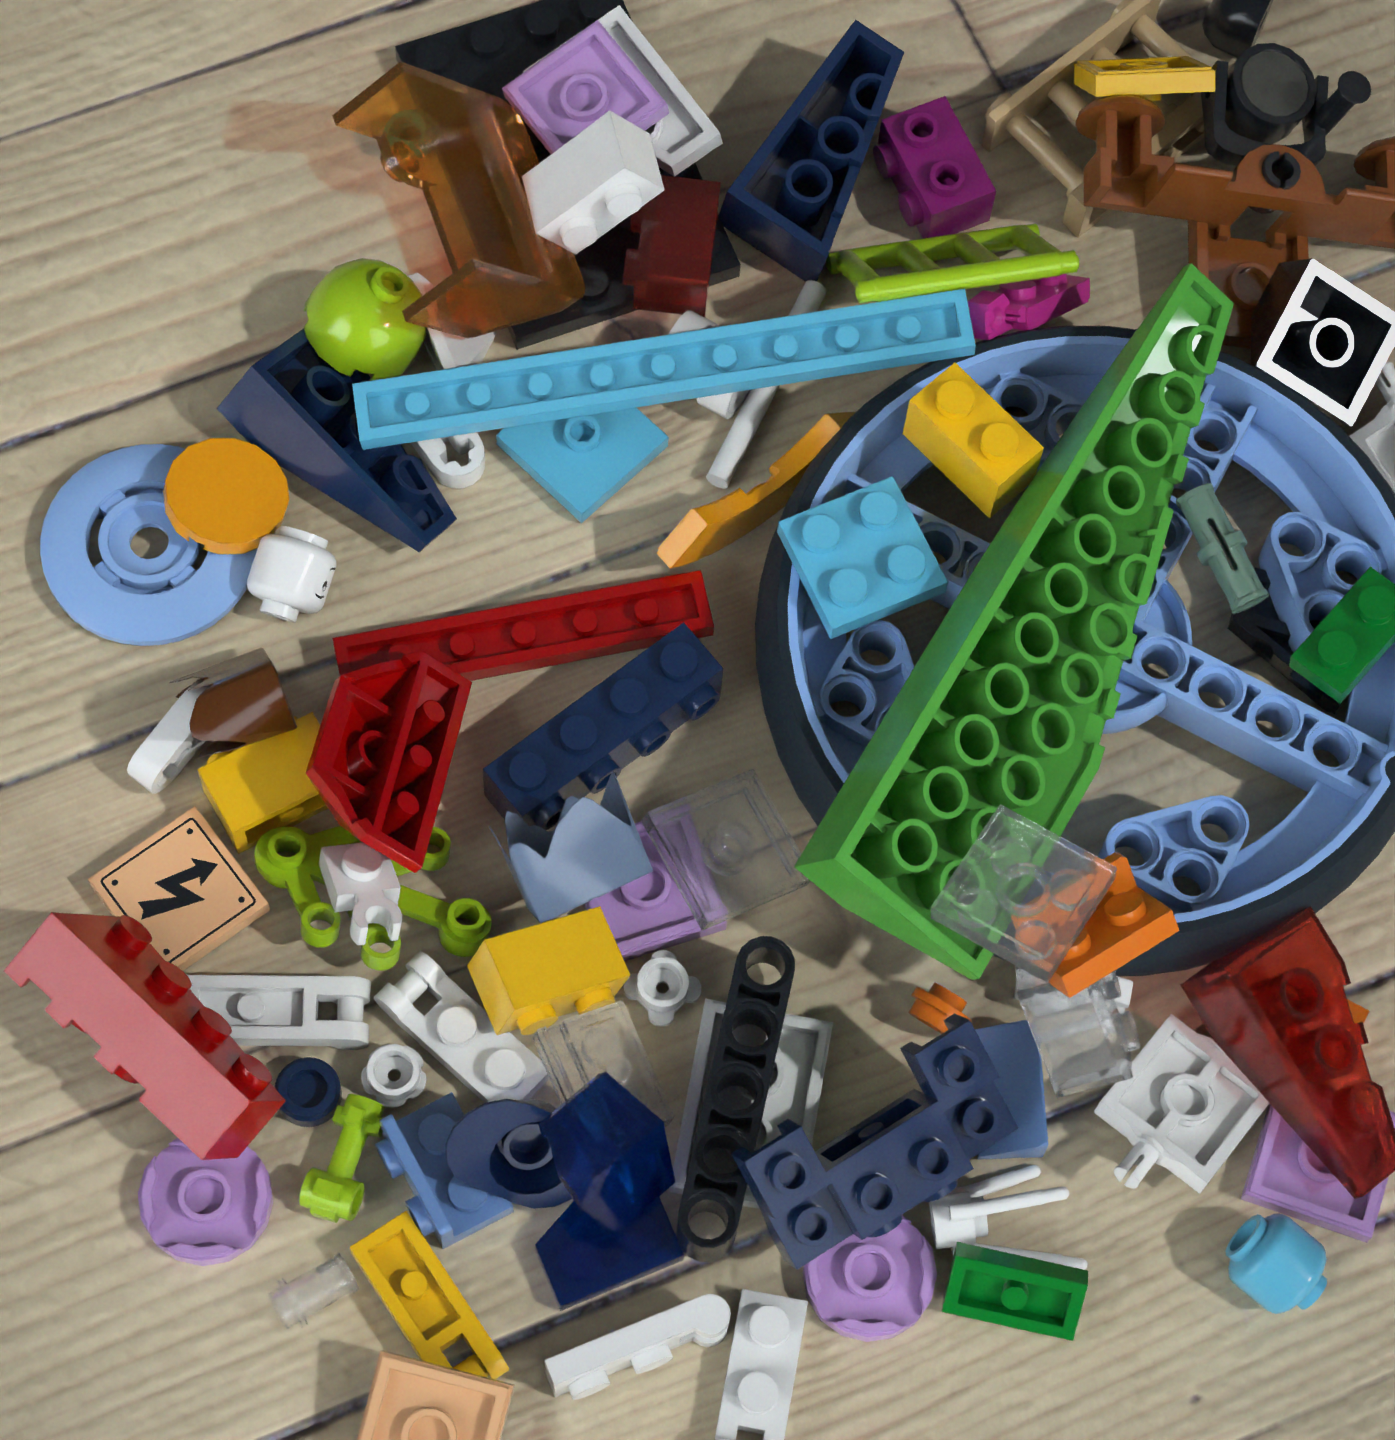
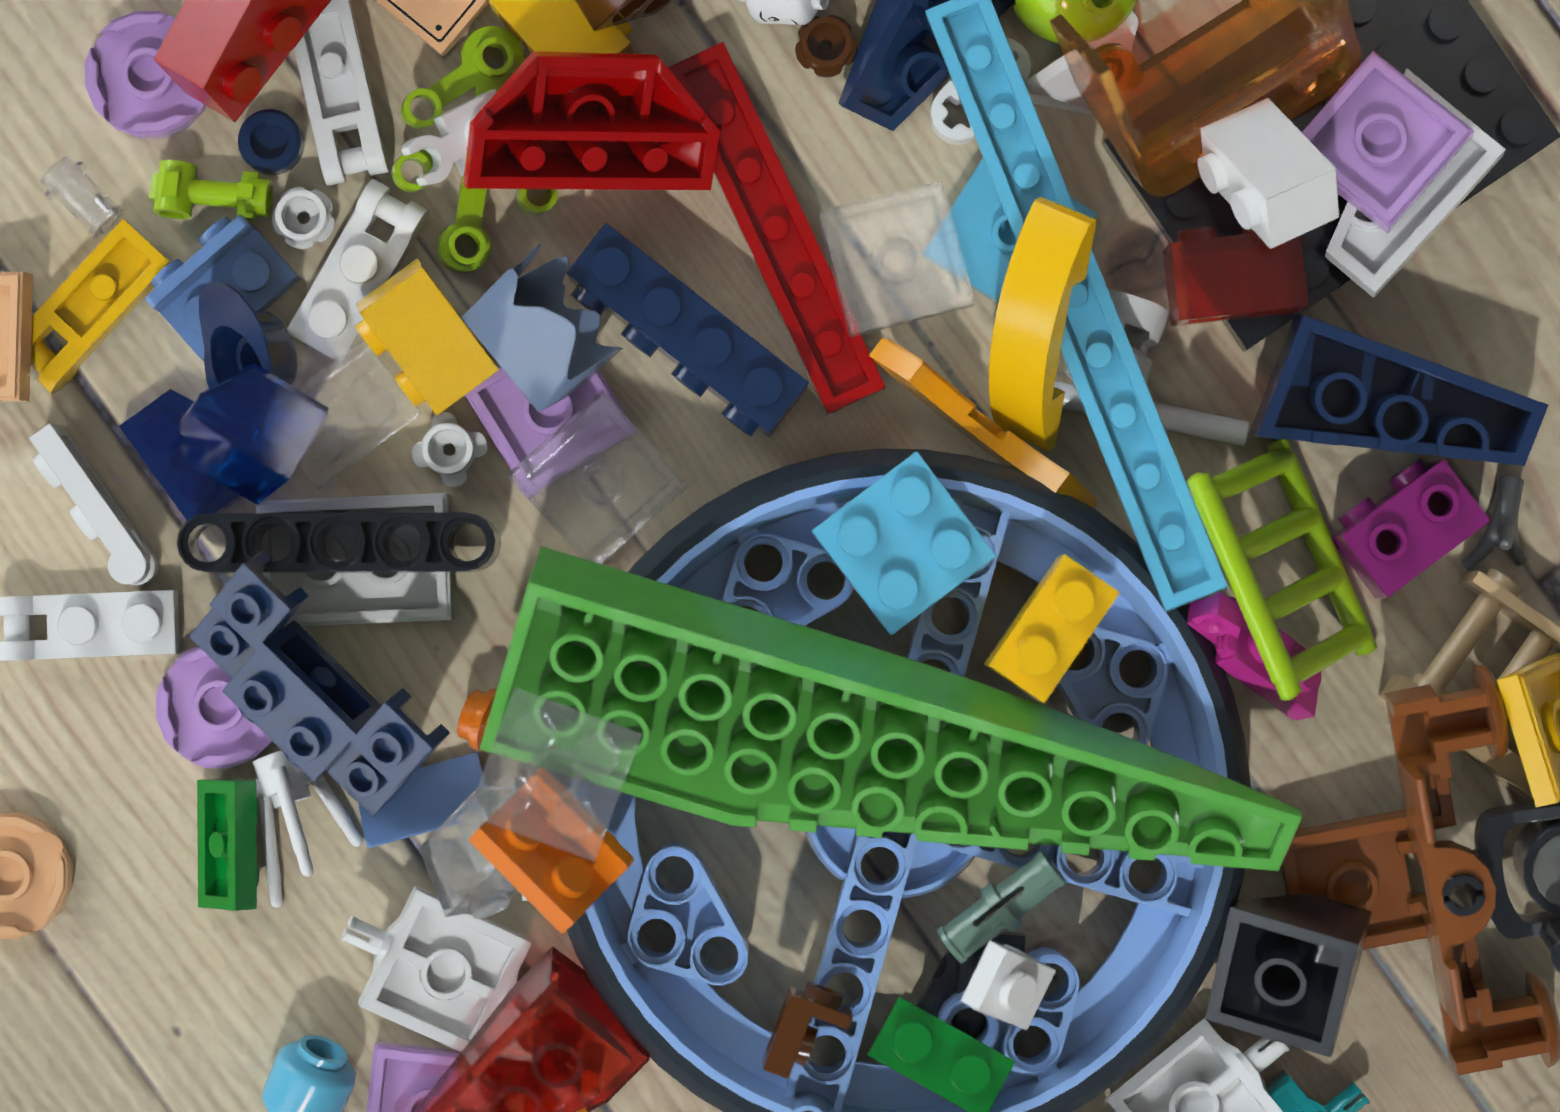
camera: 80 degrees right, 20 degrees up
(364, 540) = (843, 46): none -> reddish brown plate
(582, 532) = (896, 258): none -> clear plate
(678, 402) = (1031, 320): none -> yellow slope
(923, 92) = (1503, 524): none -> dark grey bar
(1297, 551) = (1008, 985): none -> white bracket
(1302, 754) = (792, 1035): none -> reddish brown bracket

